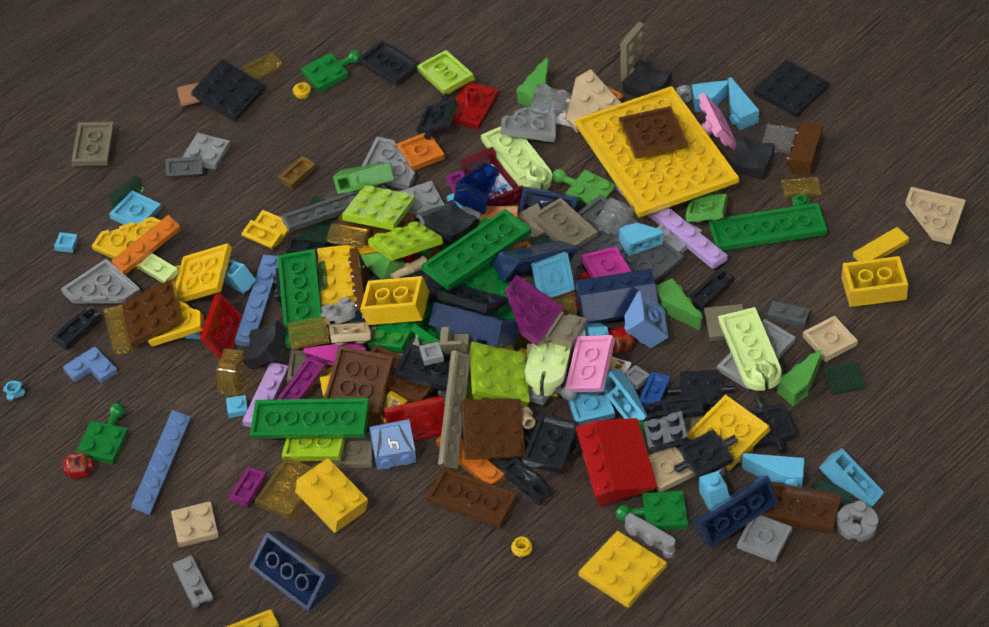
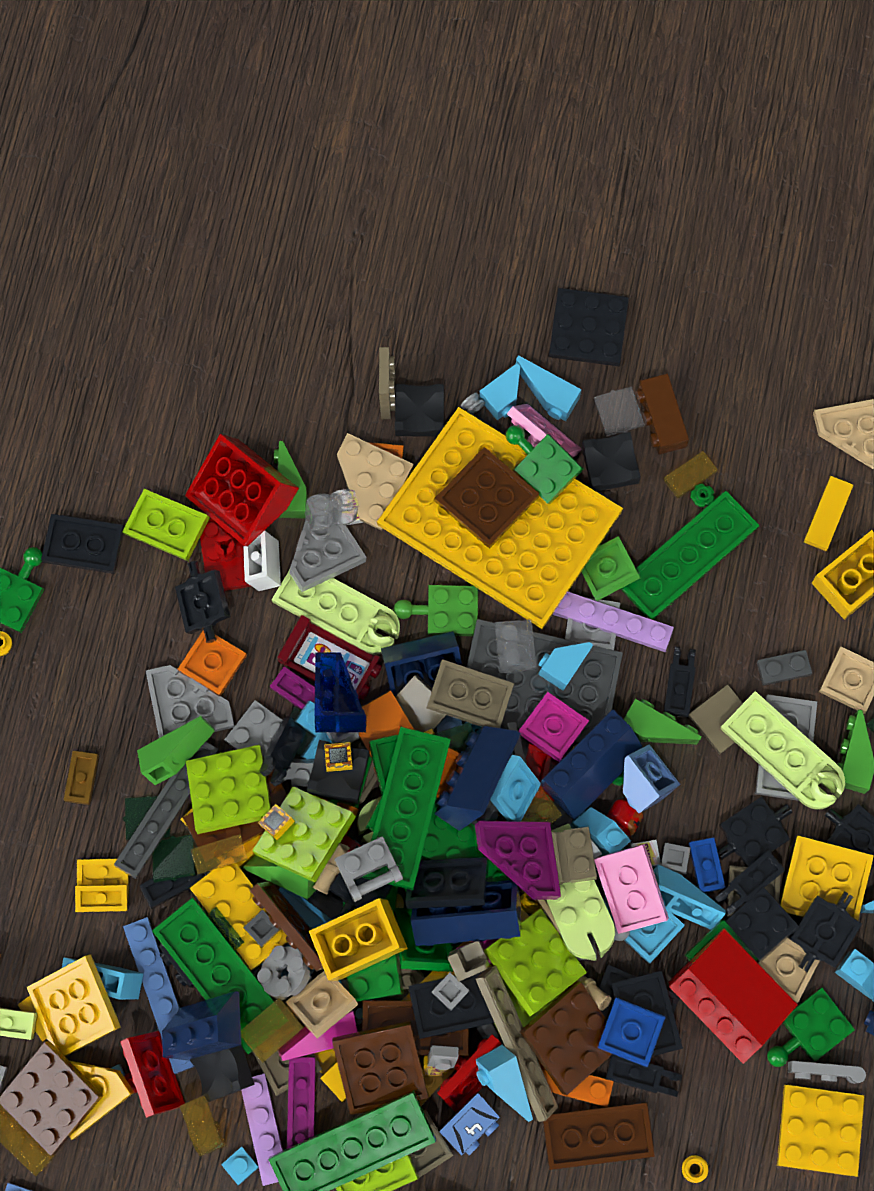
camera: 35 degrees left, 25 degrees up
(266, 310) = (203, 1028): none -> dark blue slope
(342, 281) = (261, 928): none -> dark grey plate
(393, 226) = (276, 822): none -> tile
(401, 391) = (442, 1057): none -> light grey plate
(426, 204) = (282, 750): none -> black hinge
(427, 260) = (364, 861): none -> light grey plate
(431, 422) = (502, 1075): none -> medium azure slope
(455, 210) = (338, 757): none -> tile
(489, 111) = (262, 562): none -> white brick
(503, 69) = (240, 490): none -> red slope
(533, 442) = (631, 1032): none -> blue tile
(703, 131) = (547, 466): none -> green plate

